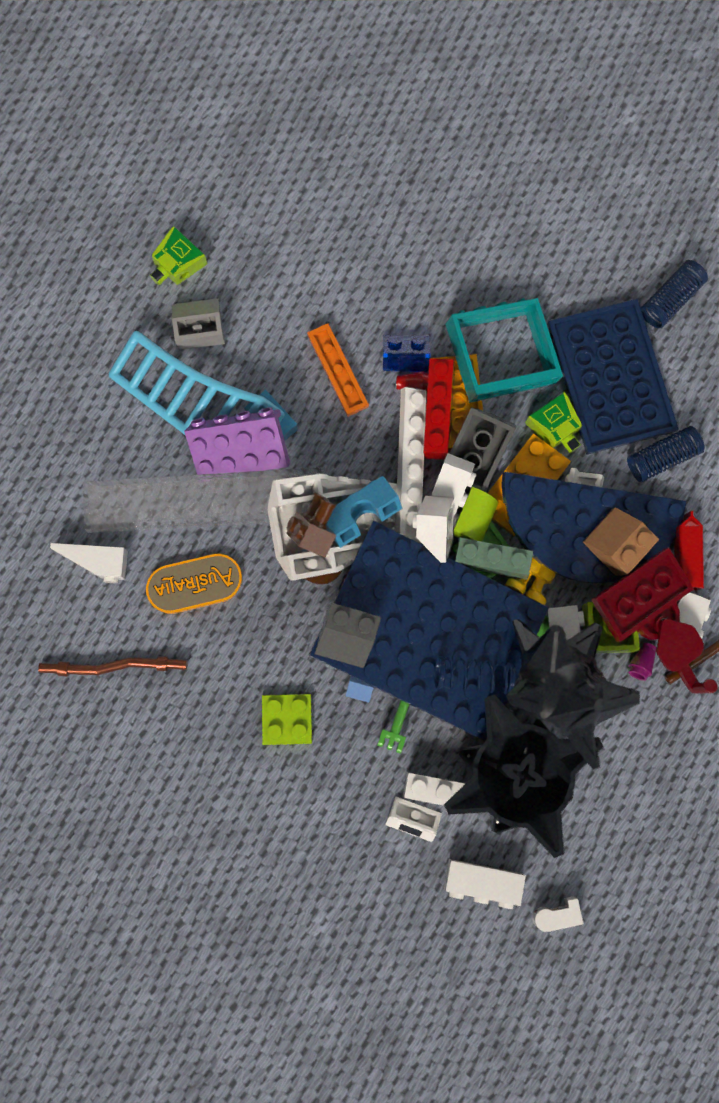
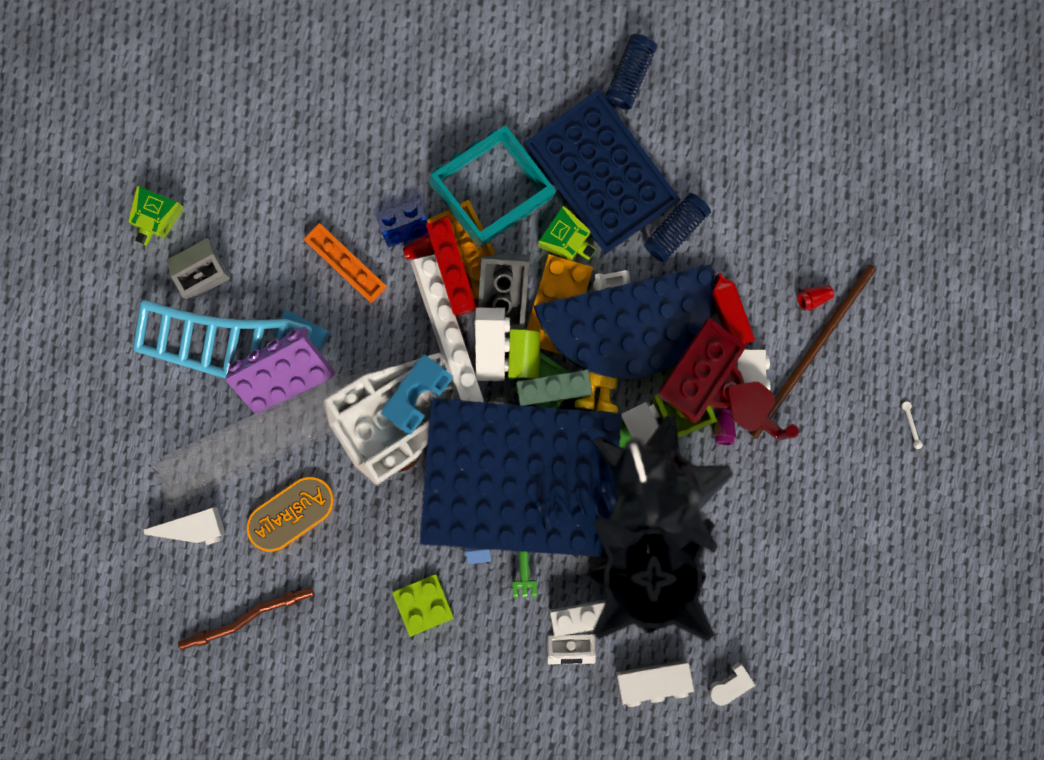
camera: 20 degrees left, 5 degrees up
(310, 528) = (375, 430): reddish brown brick -> none
(347, 635) = (446, 515): dark grey slope -> none
(435, 525) = (490, 380): white slope -> none
(620, 541) = (664, 328): medium nougat slope -> none

